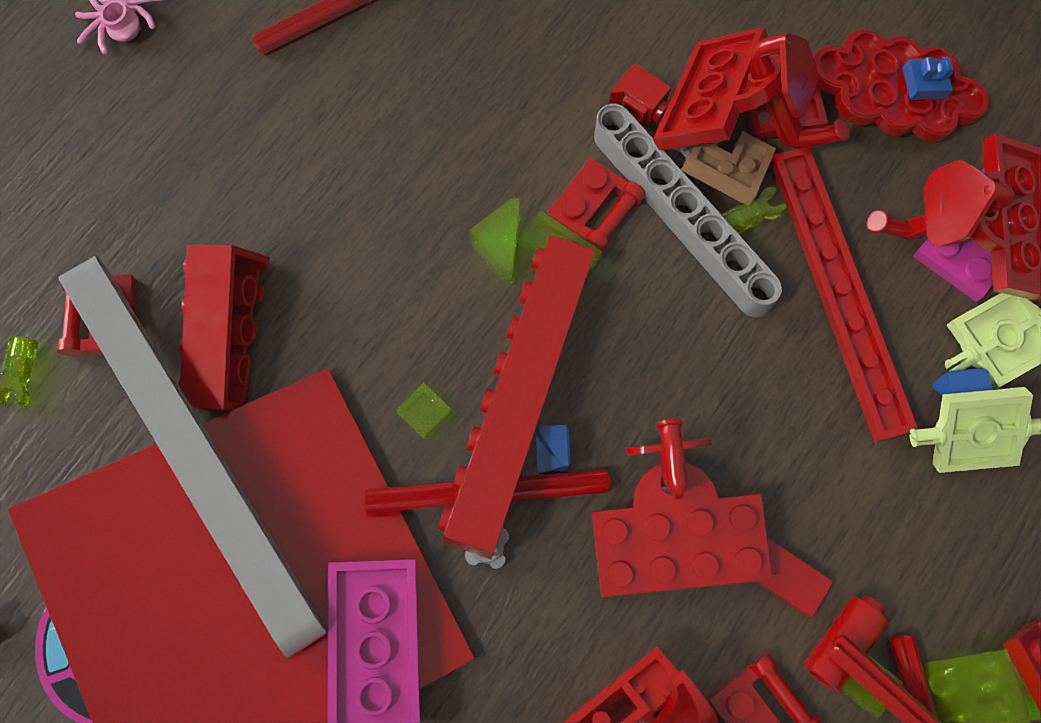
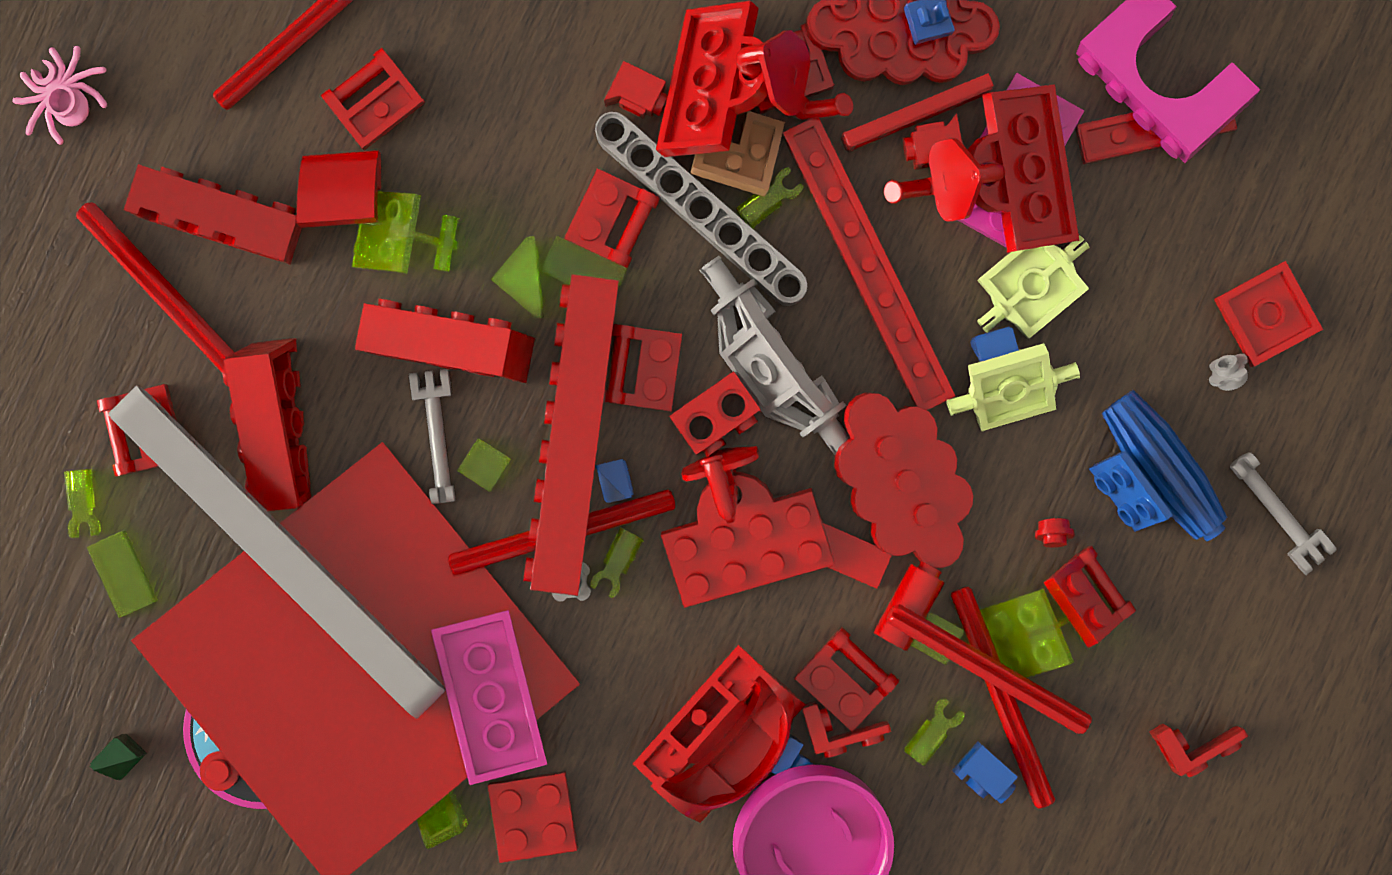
camera: 10 degrees left, 15 degrees up
(34, 450) = (121, 574): none -> clear neon green tile
(56, 676) = (217, 772): none -> red plate
(147, 179) = (154, 284): none -> red axle
(219, 127) = (213, 214): none -> red wedge
(343, 131) = (339, 189): none -> red slope
(377, 428) = (443, 490): none -> light grey hinge
(384, 170) = (390, 240): none -> clear neon green plate
(399, 73) = (380, 108): none -> red plate
(413, 281) = (445, 341): none -> wedge
(541, 532) = (618, 559): none -> clear neon green bar
(613, 350) = (655, 370): none -> red plate
(662, 394) = (710, 406): none -> red brick
(733, 363) = (766, 363): none -> light grey plate
(857, 505) = (903, 480): none -> red plate
(903, 160) = (917, 113): none -> red tile
(907, 192) = (920, 142): none -> red window
(1011, 593) = (1054, 532): none -> red plate

